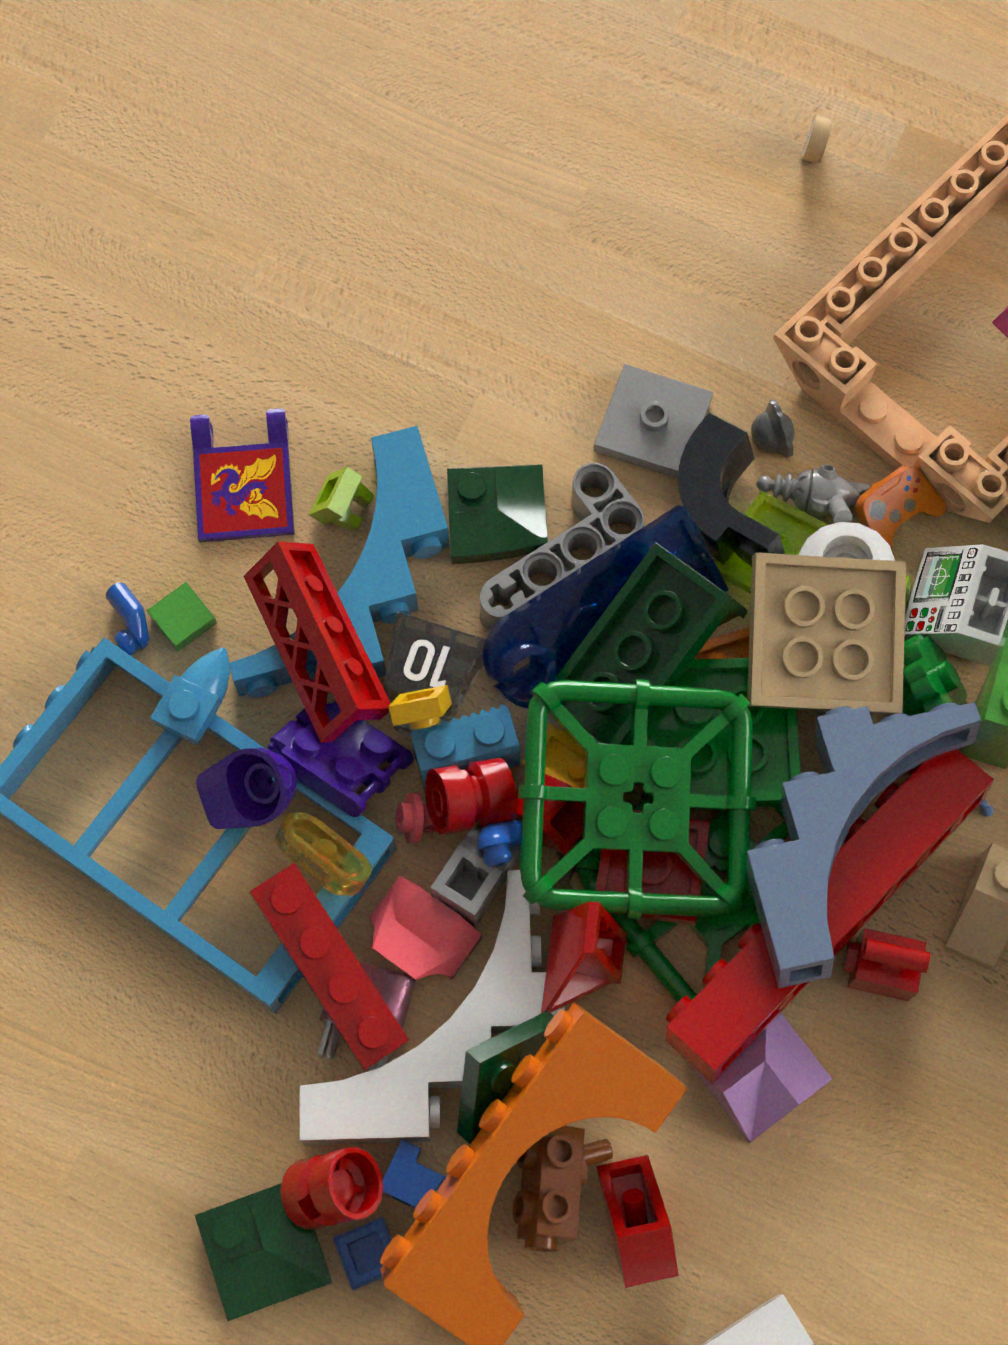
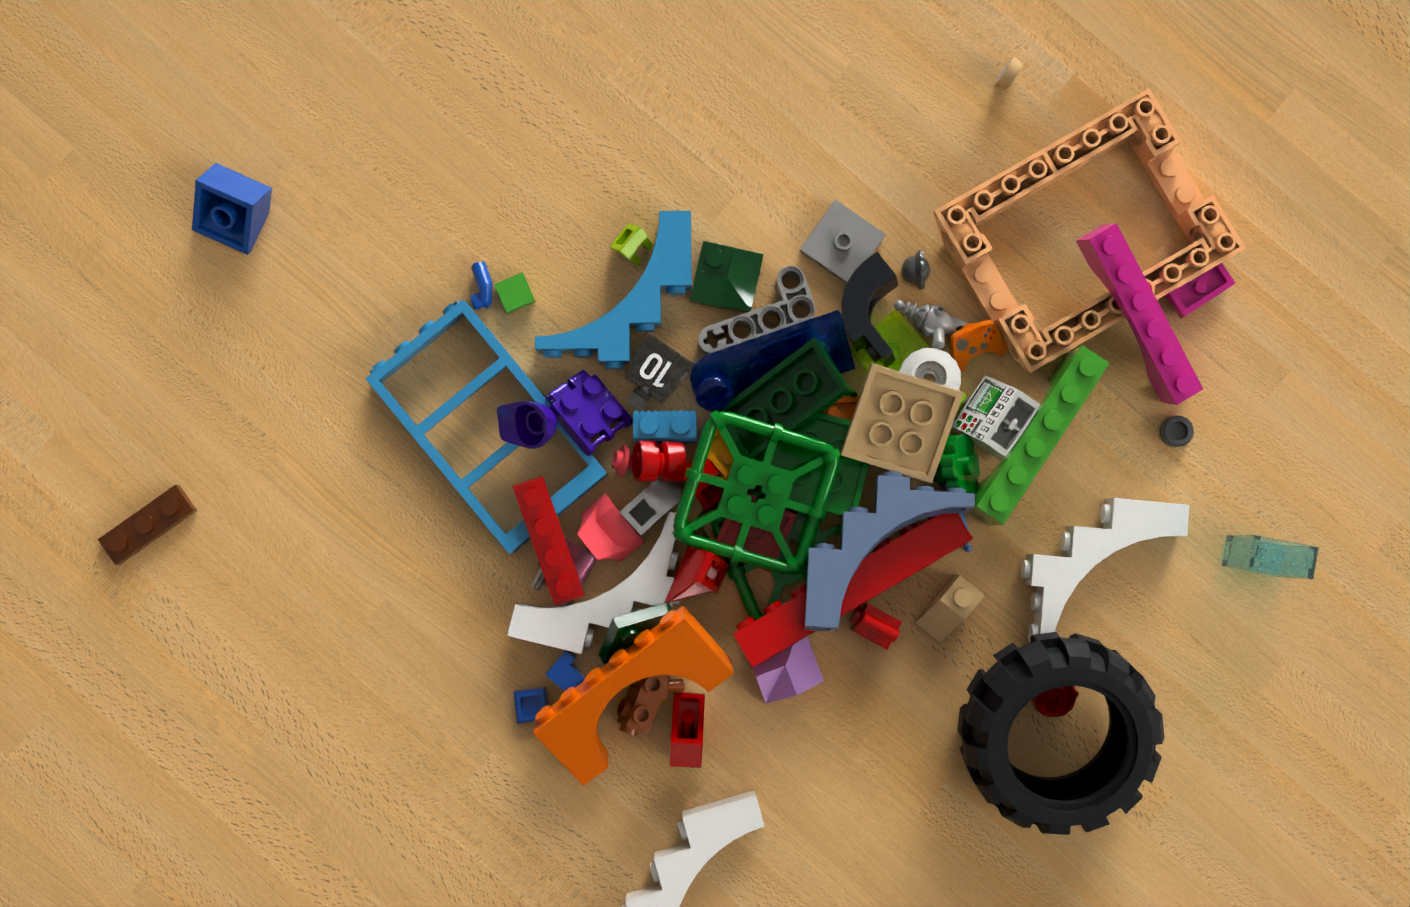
camera: 10 degrees right, 15 degrees up
(194, 697) = (509, 353): dark azure plate -> none
(242, 487) = (571, 216): flag -> none
(260, 1253) = (473, 686): dark green plate -> none
(322, 628) = (595, 335): red fence -> none
(323, 854) = (561, 474): clear yellow plate -> none
(332, 1188) = (518, 667): red wheel -> none
(420, 707) = (643, 399): yellow plate -> none
(496, 840) = (666, 493): blue arm -> none

